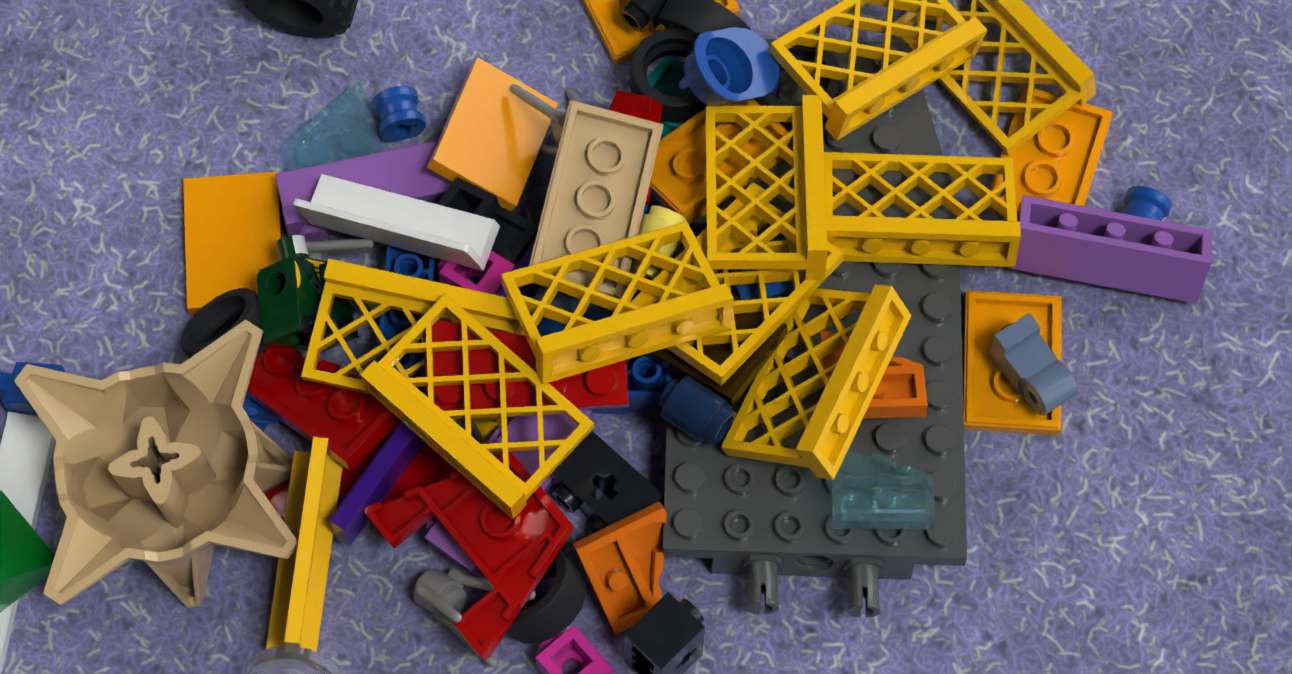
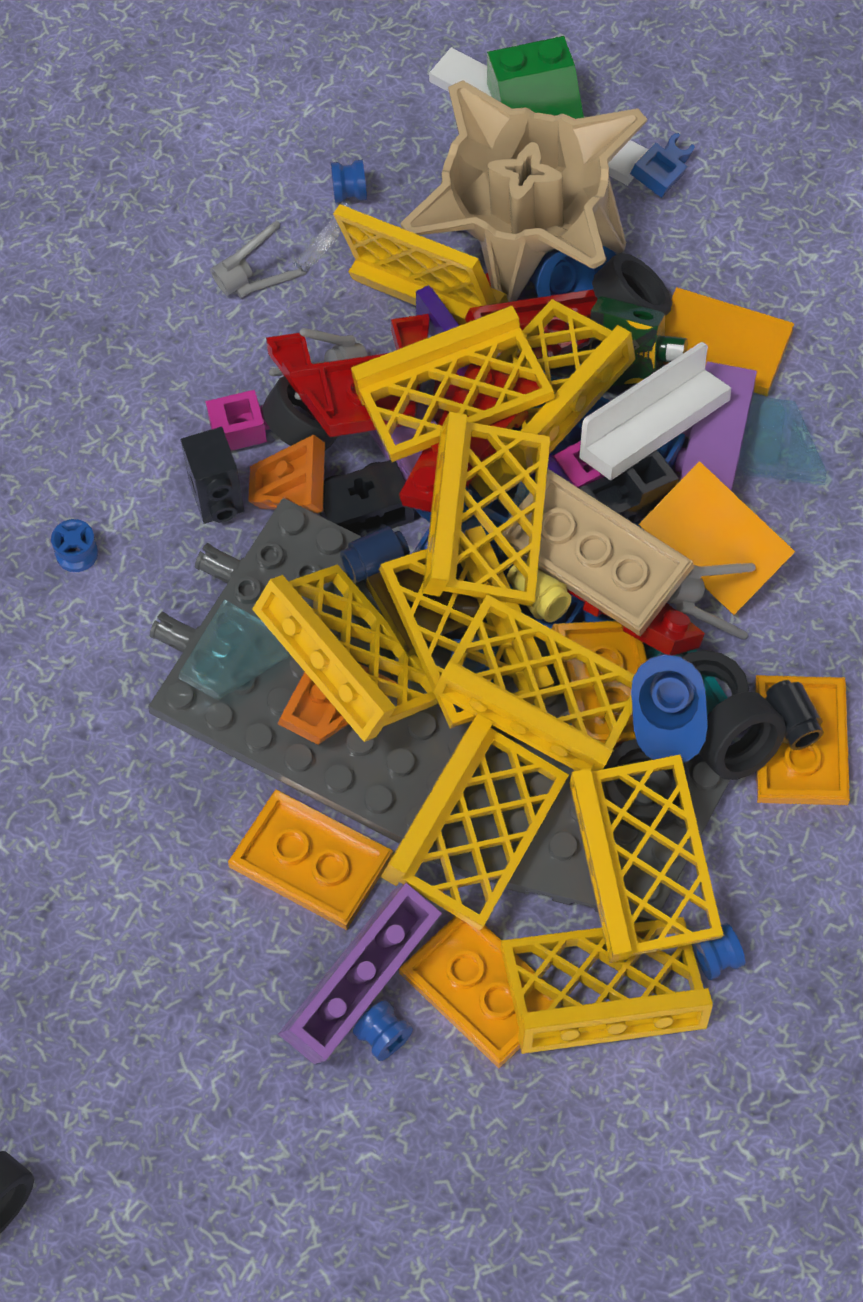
camera: 120 degrees right, 5 degrees down
(398, 113) = (778, 489): blue wheel -> none
(1032, 366) = (286, 853): sand blue leg -> none

